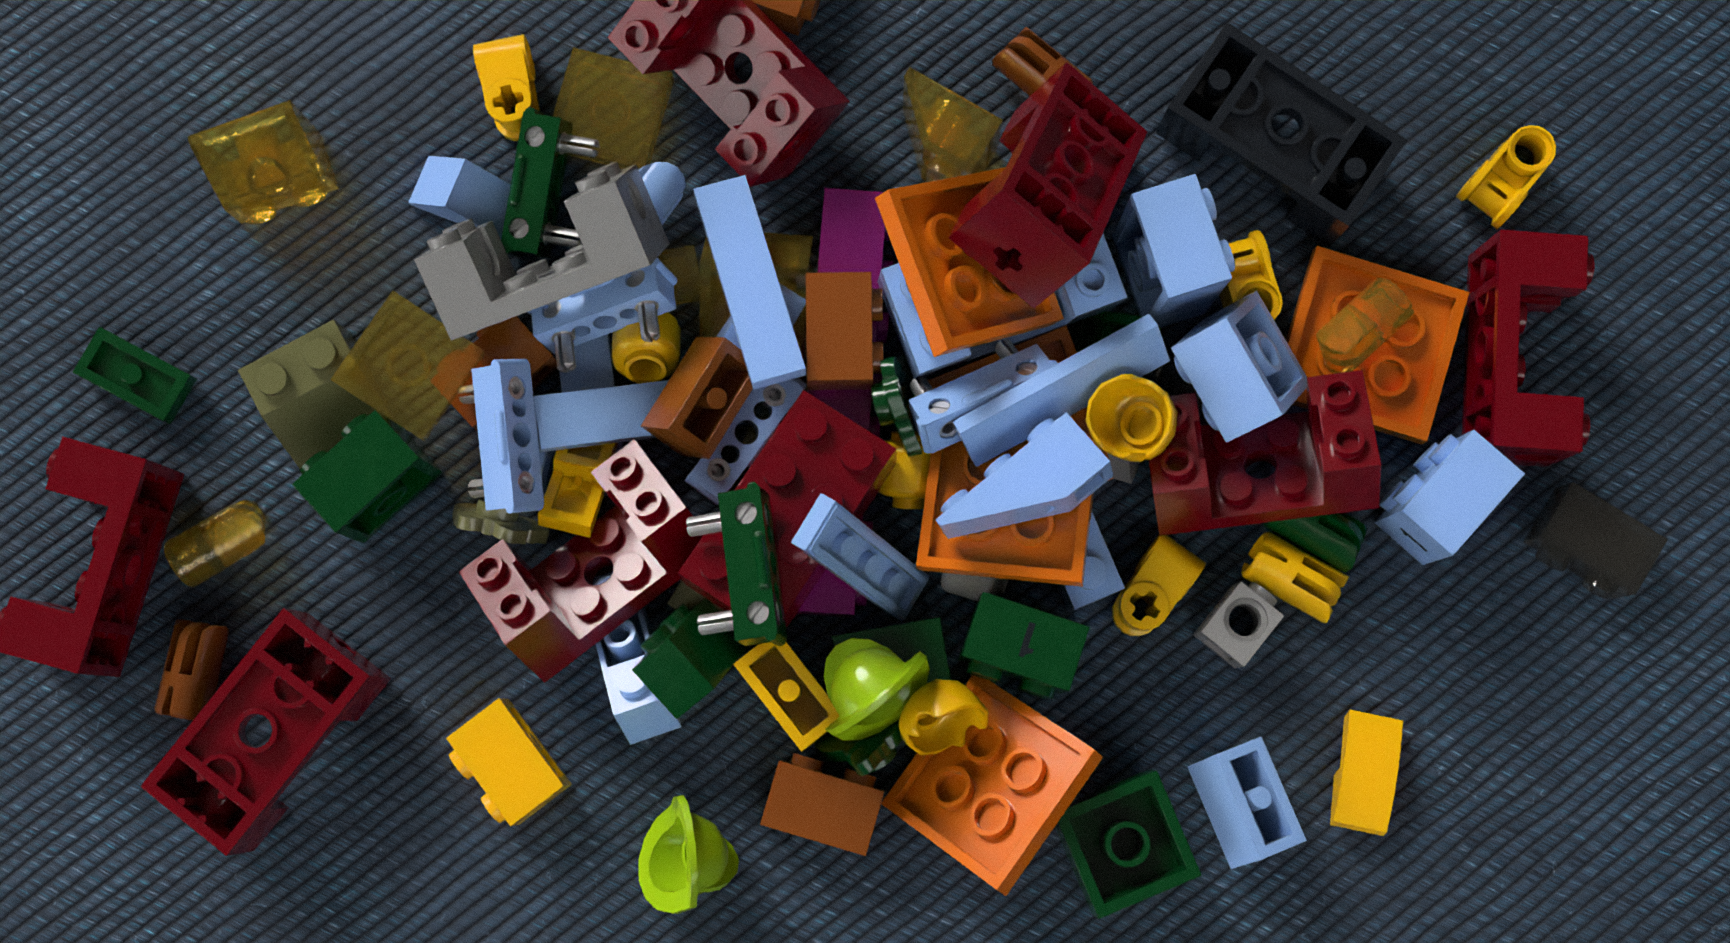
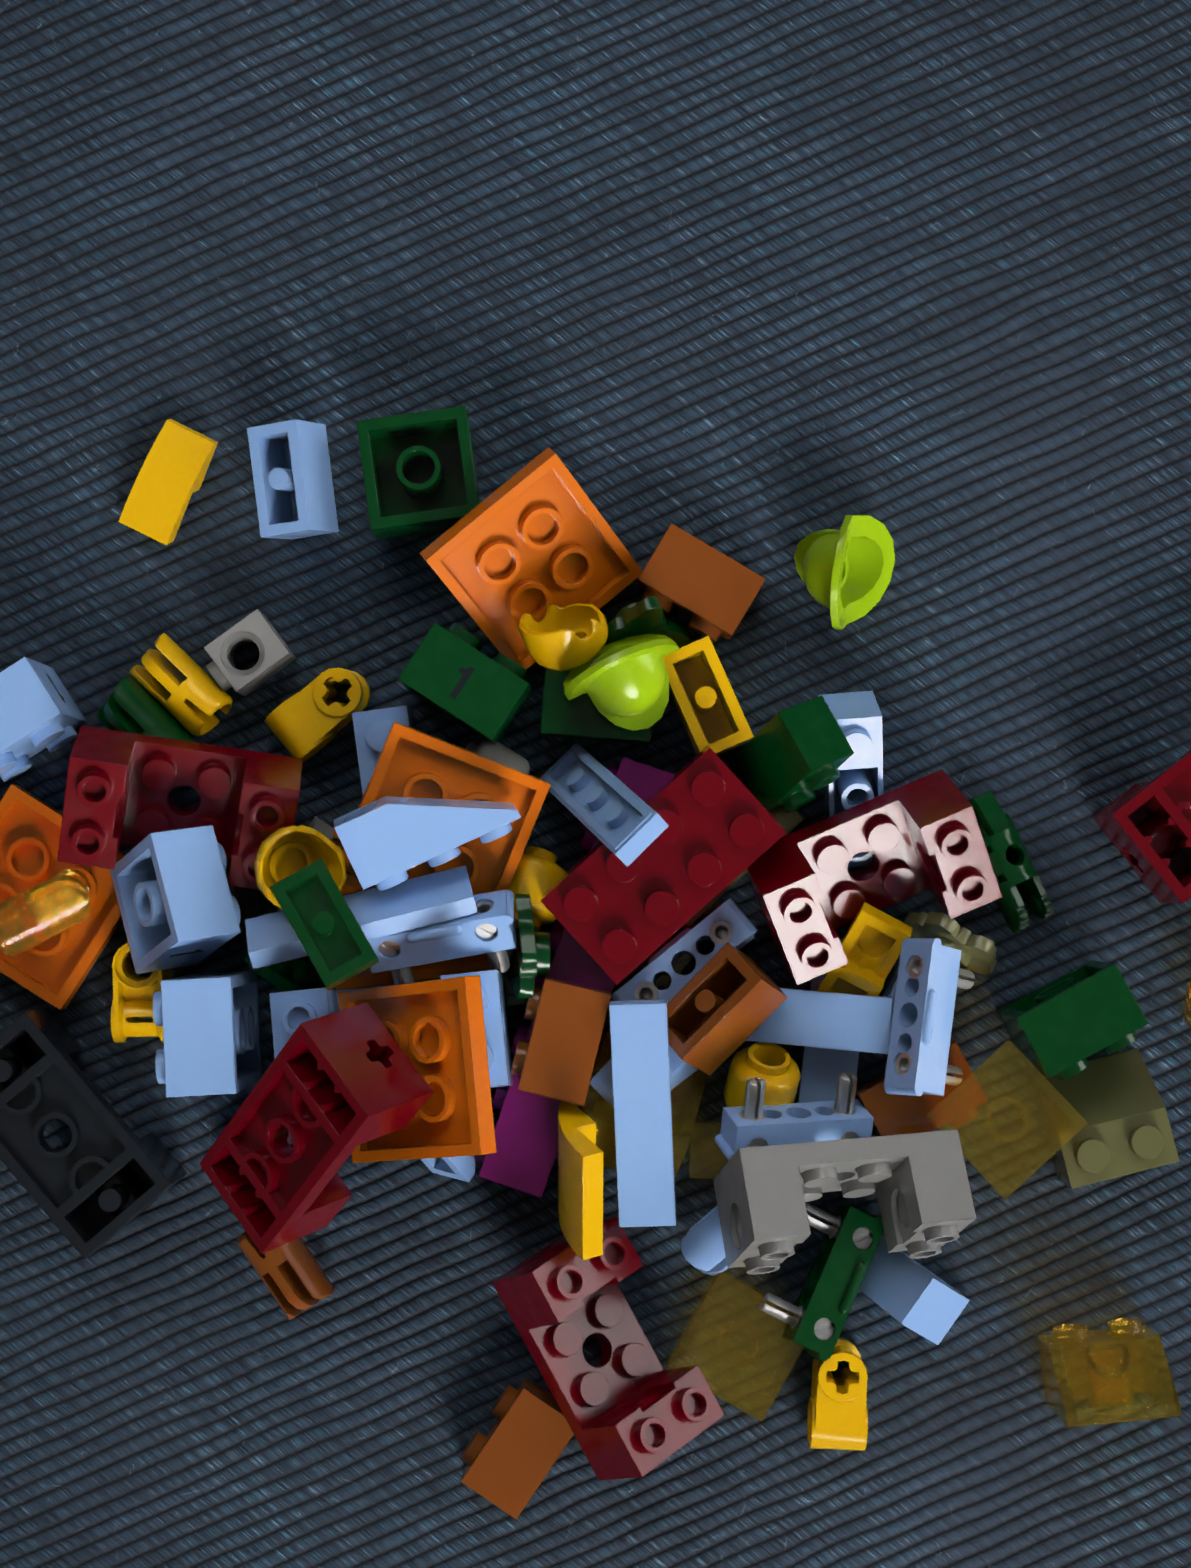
camera: 165 degrees left, 5 degrees up
(461, 612) = (1010, 865): none -> dark green hinge
(506, 763) = (996, 703): yellow brick -> none
(750, 567) = (714, 815): dark green piece -> none
(791, 203) = (580, 1182): none -> yellow slope
(947, 130) = (402, 1219): clear yellow slope -> none
(1093, 367) = (324, 924): none -> dark green plate

